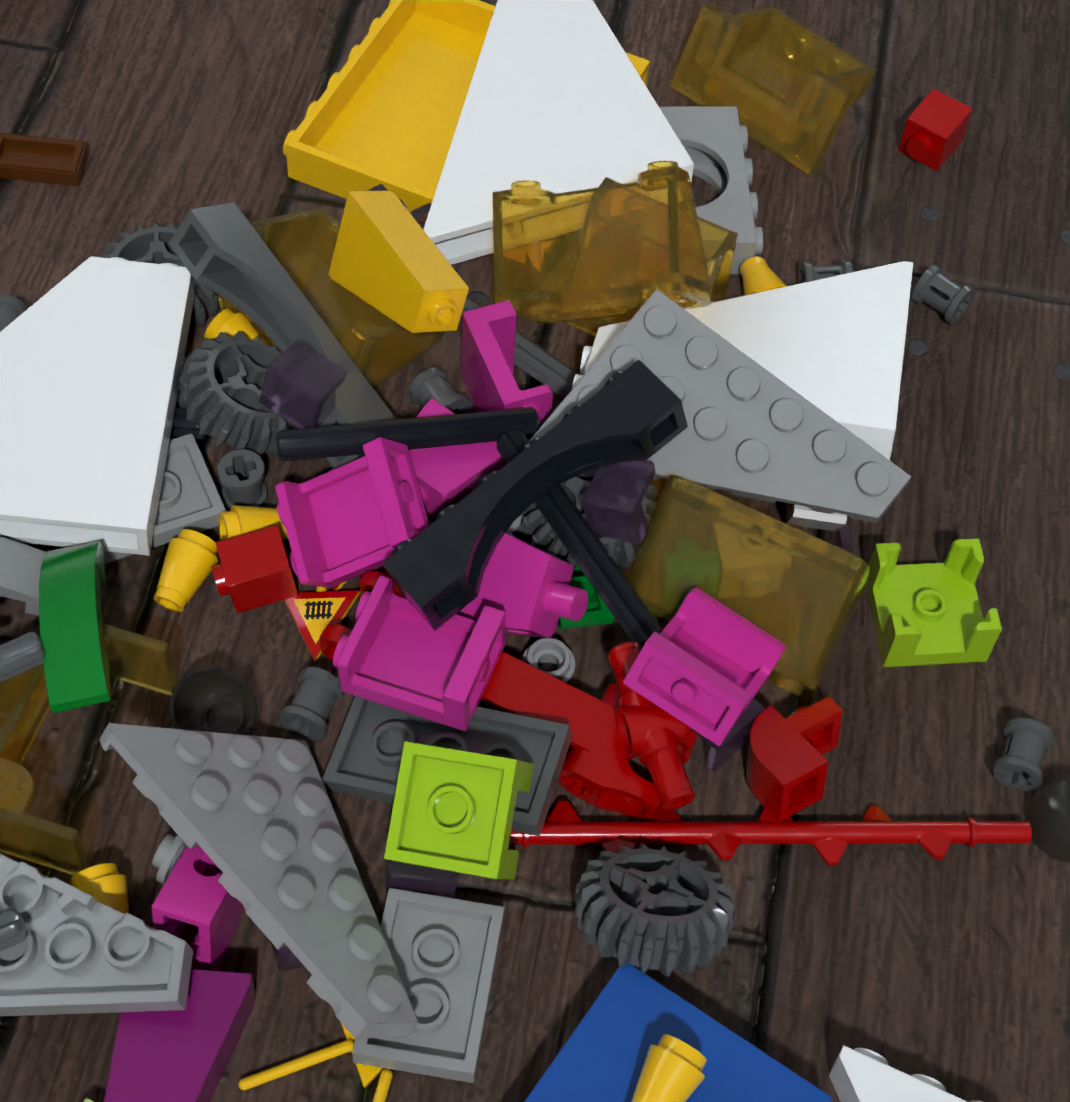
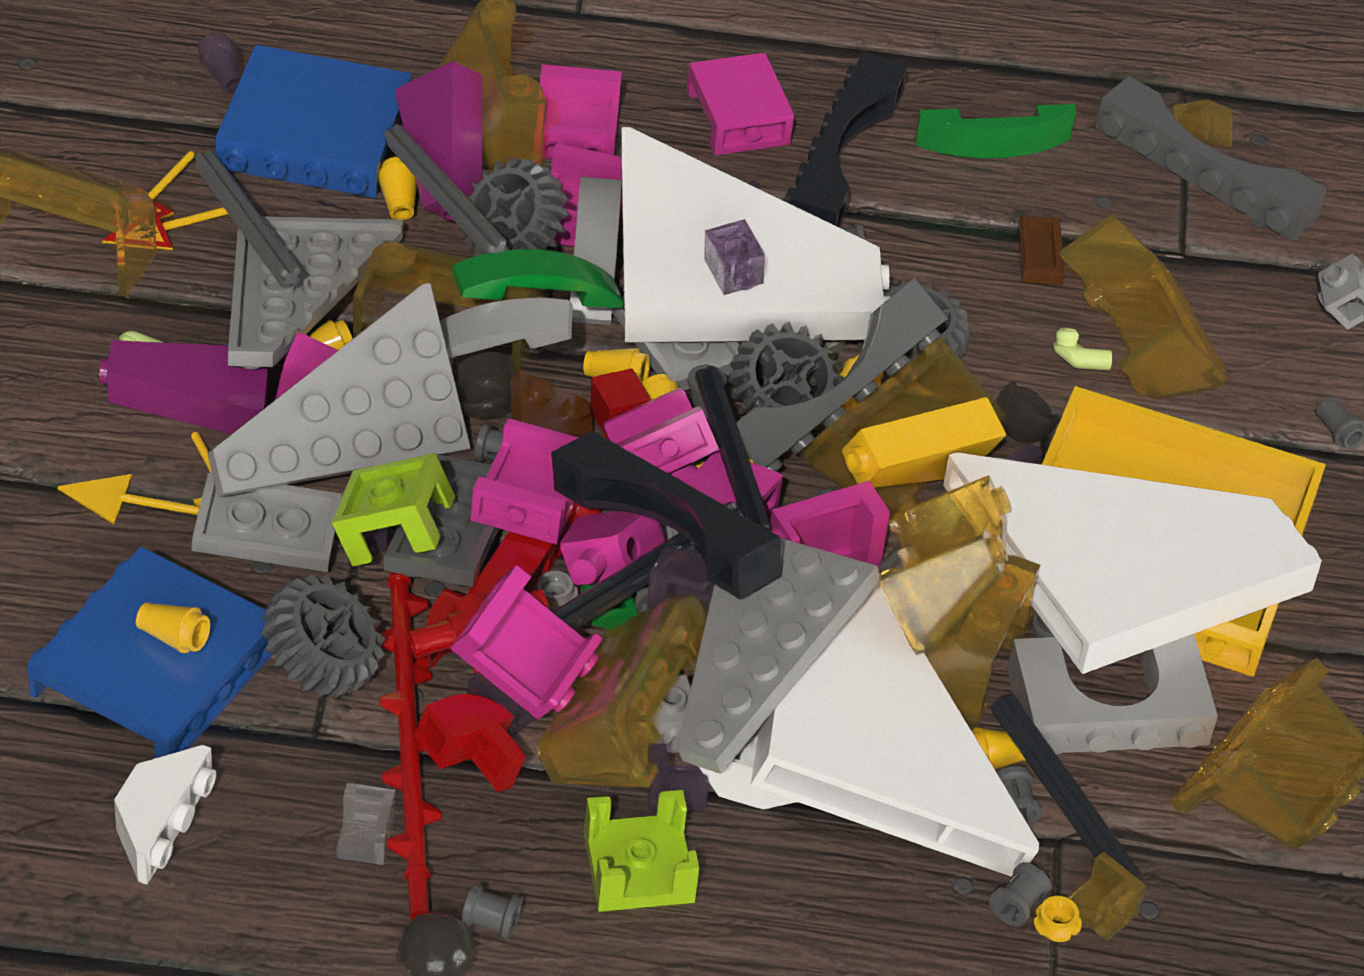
camera: 85 degrees right, 10 degrees down
(95, 409) = (734, 257): none -> clear purple brick
(148, 672) = (500, 322): none -> light grey slope
(187, 77) = (1149, 310): none -> clear yellow windscreen
(213, 149) = (1078, 356): none -> yellowish green arm
(276, 642) = (548, 406): none -> reddish brown wing
(299, 384) = (779, 385): clear purple panel -> none
(307, 195) = (1026, 414): none -> clear smoke hair
(825, 238) = (1059, 782): none -> black axle
(914, 879) = (366, 823): none -> clear panel
(935, 129) = (1250, 901): red brick -> none
(940, 230) = (1109, 897): none -> clear yellow panel
(966, 269) = (1061, 910): none -> yellow plate

